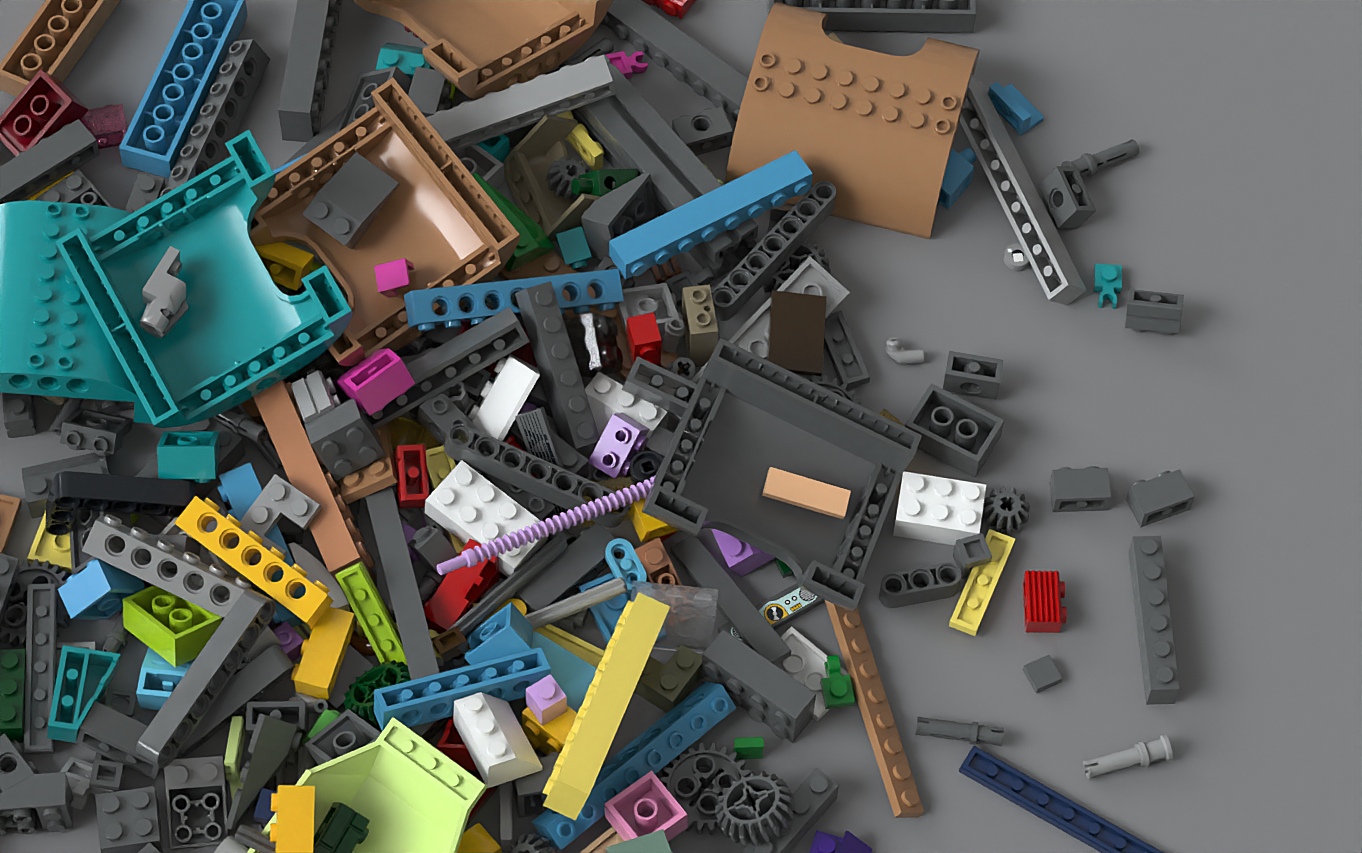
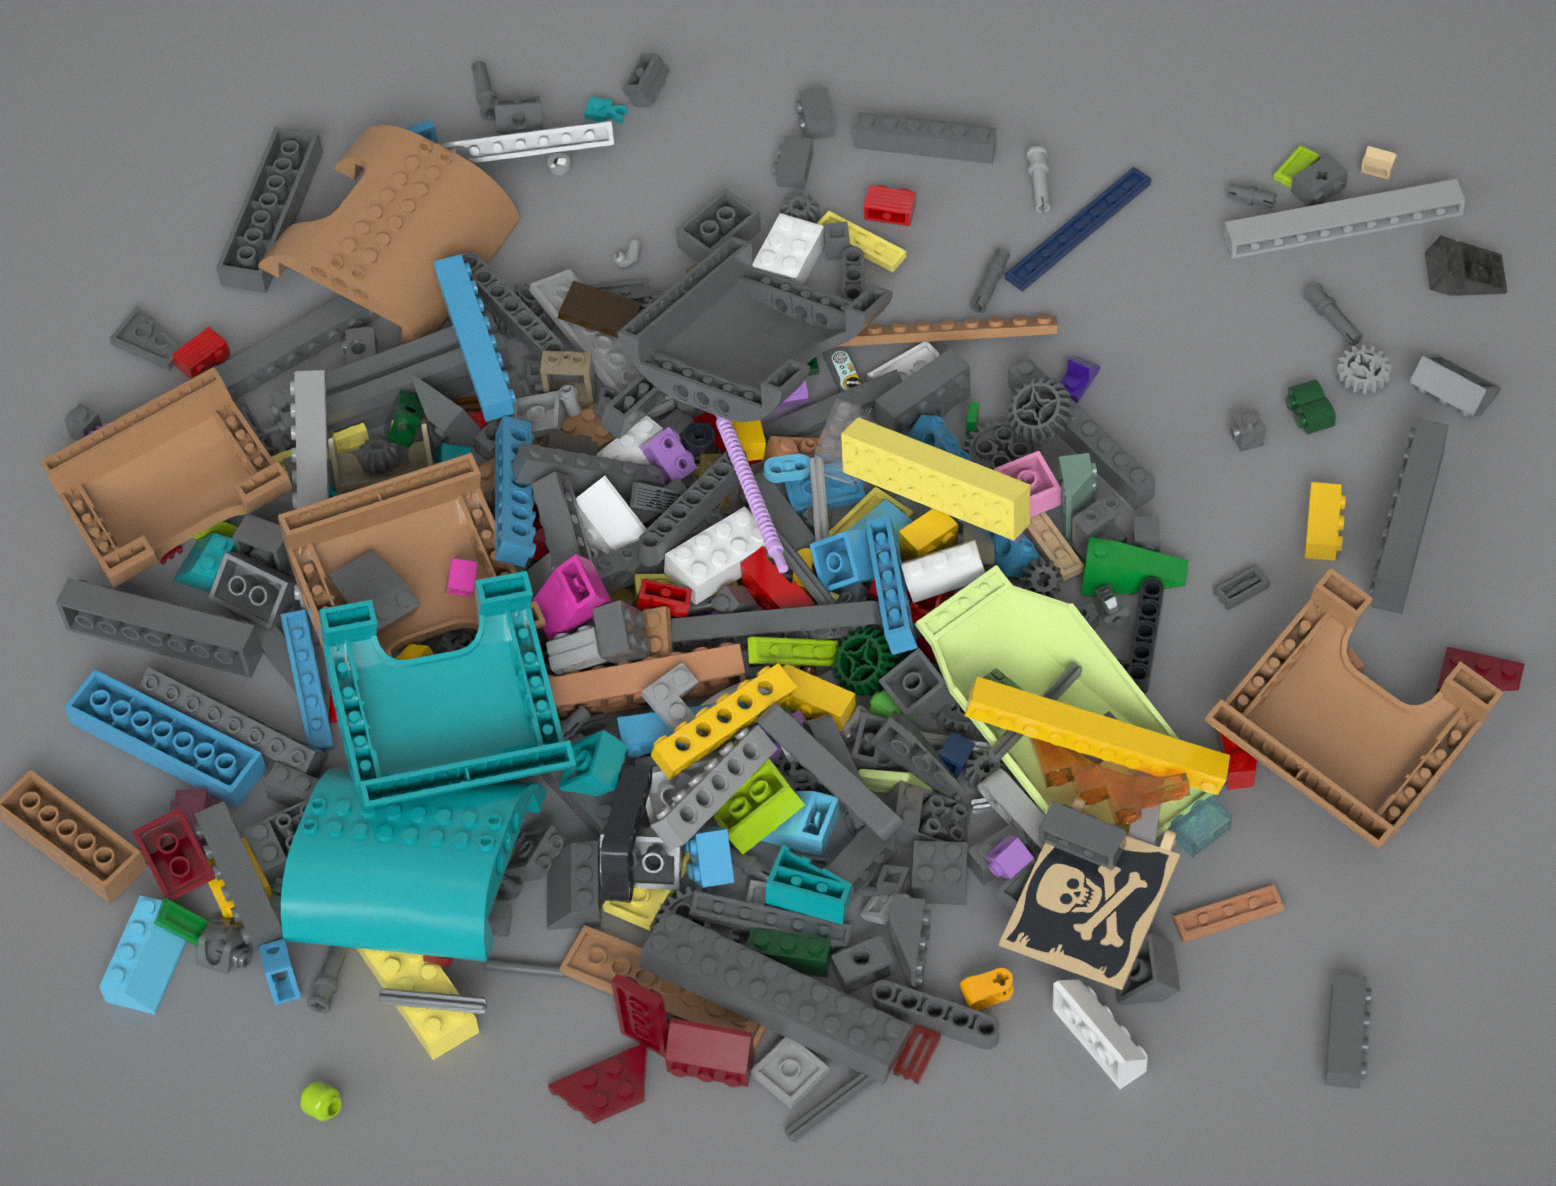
camera: 70 degrees left, 5 degrees down
(164, 296) = (440, 737): light grey plate -> none
(451, 644) = (839, 590): dark brown plate -> none
(546, 700) = (917, 523): lavender brick -> none
(628, 65) = (263, 400): dark pink plate -> none
(644, 338) = (579, 413): red brick -> none
(806, 493) = (760, 325): light nougat tile -> none
(835, 688) = (930, 350): green plate -> none
(973, 375) = (669, 207): dark grey brick -> none
(1042, 673) = (951, 220): dark grey tile -> none

